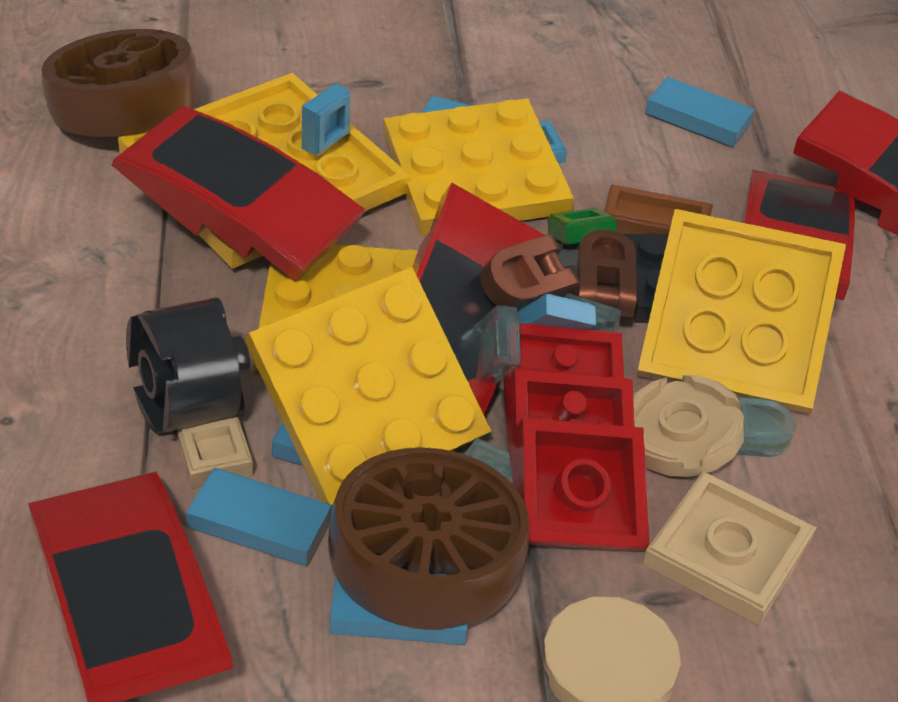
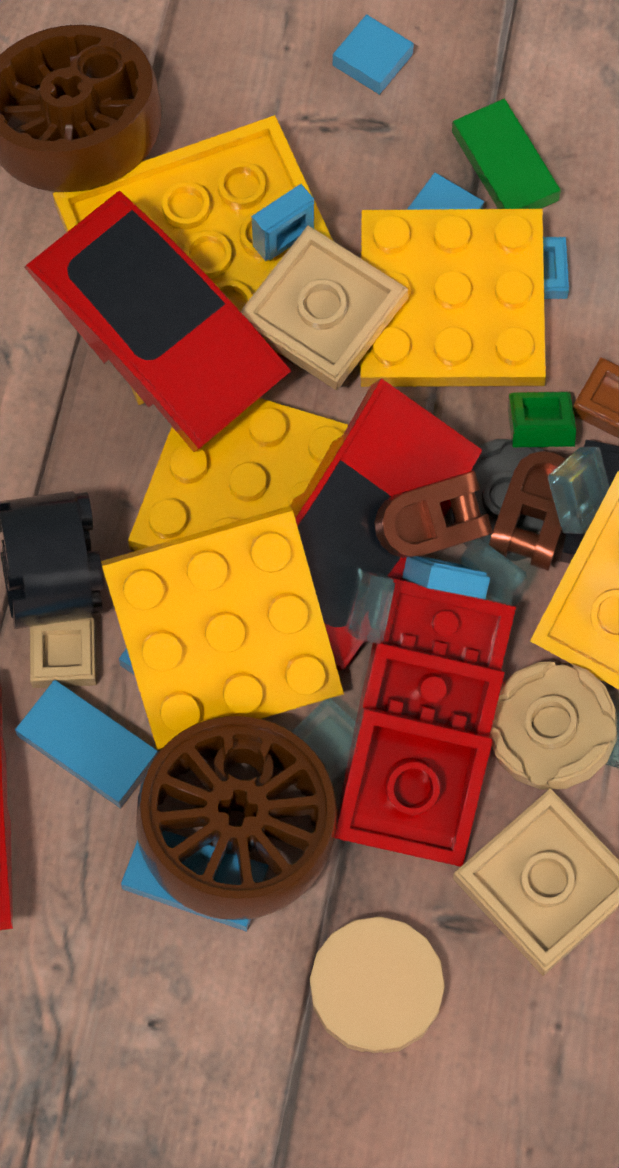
camera: 20 degrees right, 25 degrees up
(355, 40) = (372, 54): none -> dark azure tile
(381, 169) = (323, 307): none -> tan tile
(478, 80) = (505, 158): none -> green tile
(641, 242) = (579, 489): none -> clear light blue tile

